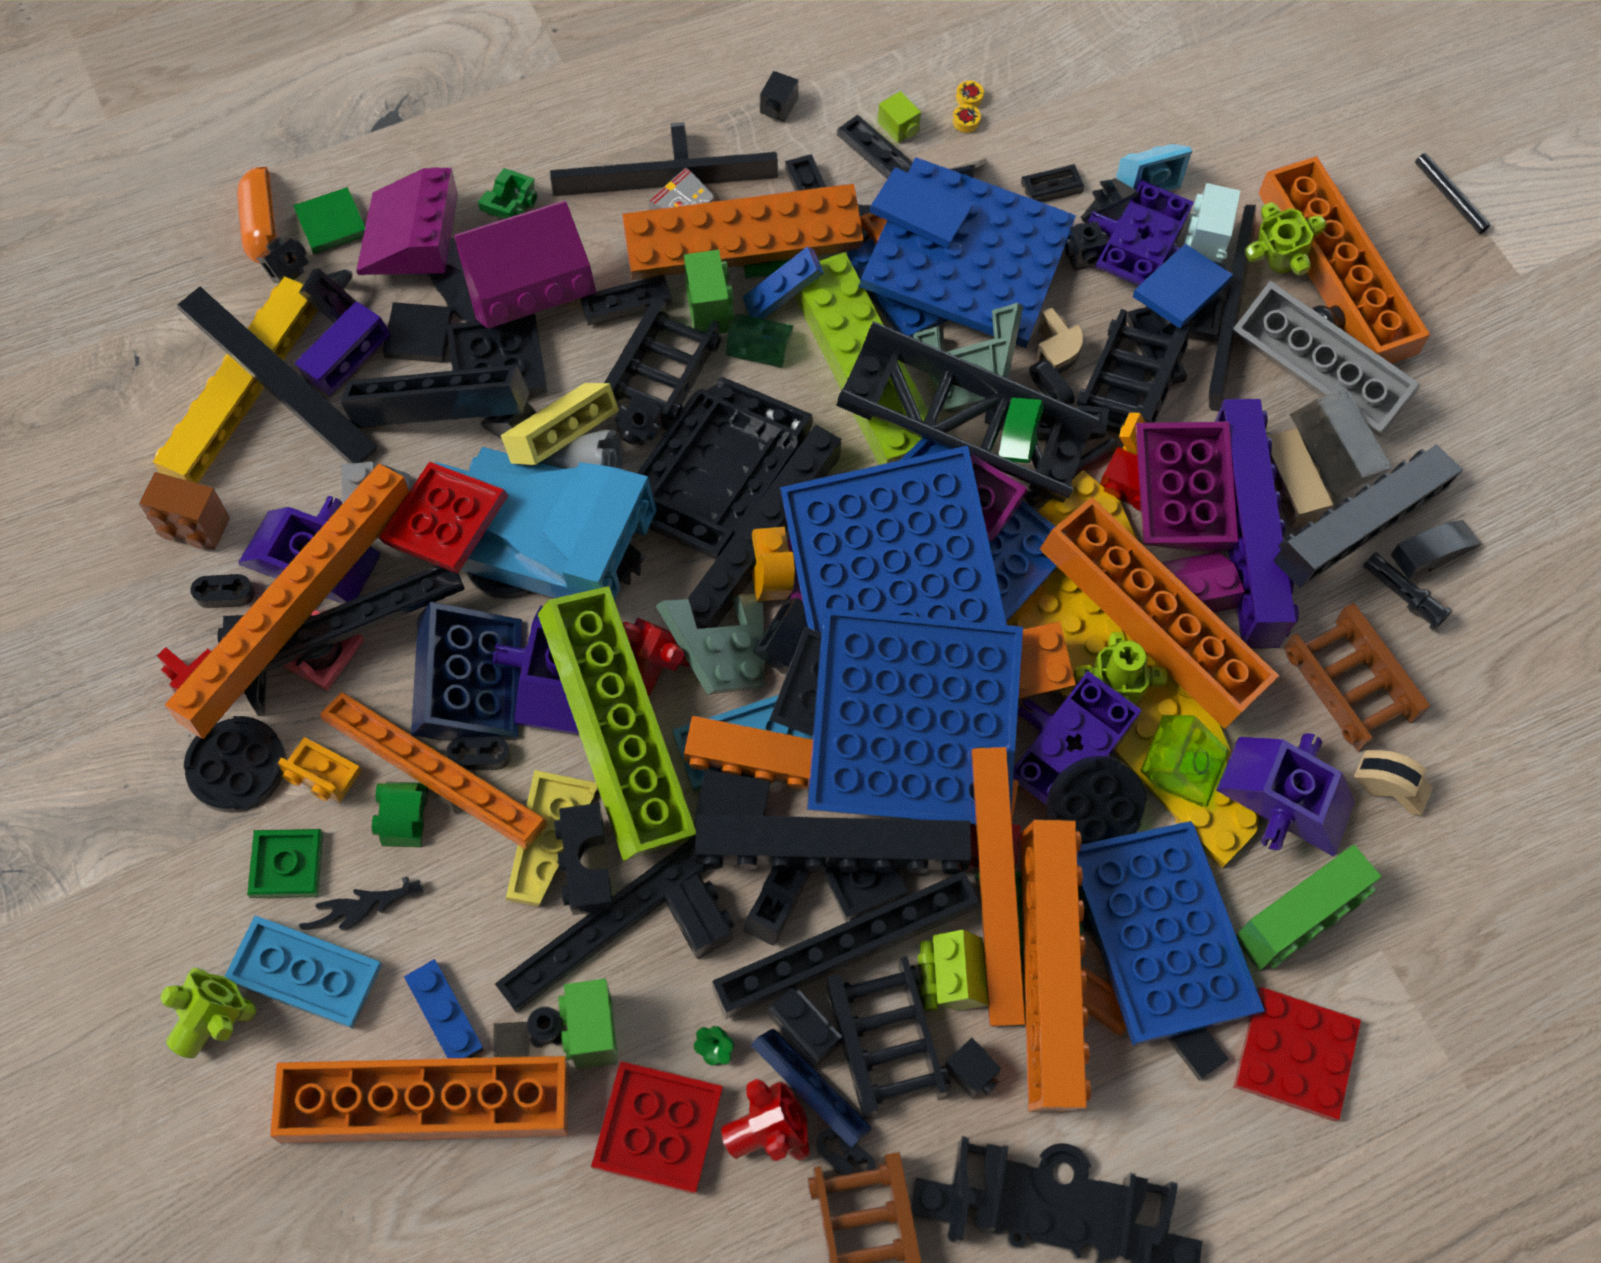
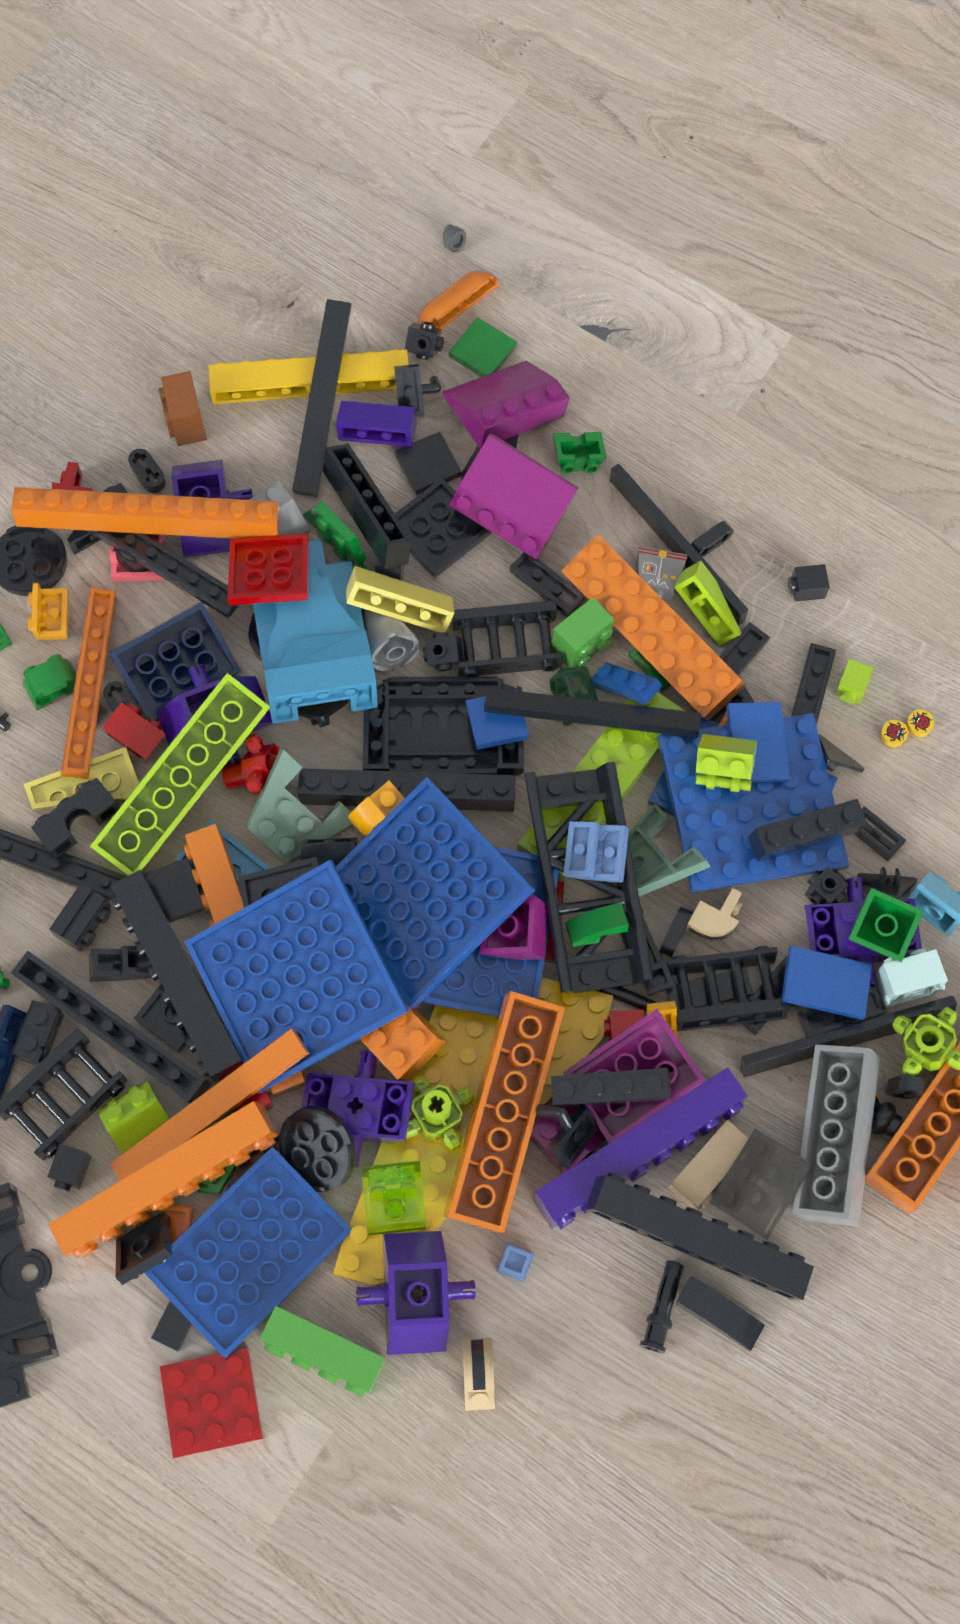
camera: 60 degrees right, 5 degrees up
(190, 177) = (453, 238): none -> dark grey tile
(443, 442) = (337, 534): none -> green wing
(524, 750) = (134, 731): none -> red brick
(744, 177) = (707, 602): none -> lime slope
(745, 410) = (494, 728): none -> blue tile
(798, 322) = (593, 712): none -> black tile
(928, 230) = (725, 758): none -> lime brick
(951, 386) = (596, 851): none -> medium blue slope
(1031, 217) = (807, 830): none -> black brick
(1114, 1029) = (143, 1248): none -> black plate
(1163, 204) = (885, 925): none -> green slope
(1193, 501) = (611, 1087): none -> black brick
(1214, 557) = (573, 1135): none -> black plate
(1297, 695) = (515, 1262): none -> medium blue tile
(1311, 282) = (905, 1087): none -> black beam
(1382, 663) = (584, 1300): dark orange fence -> none

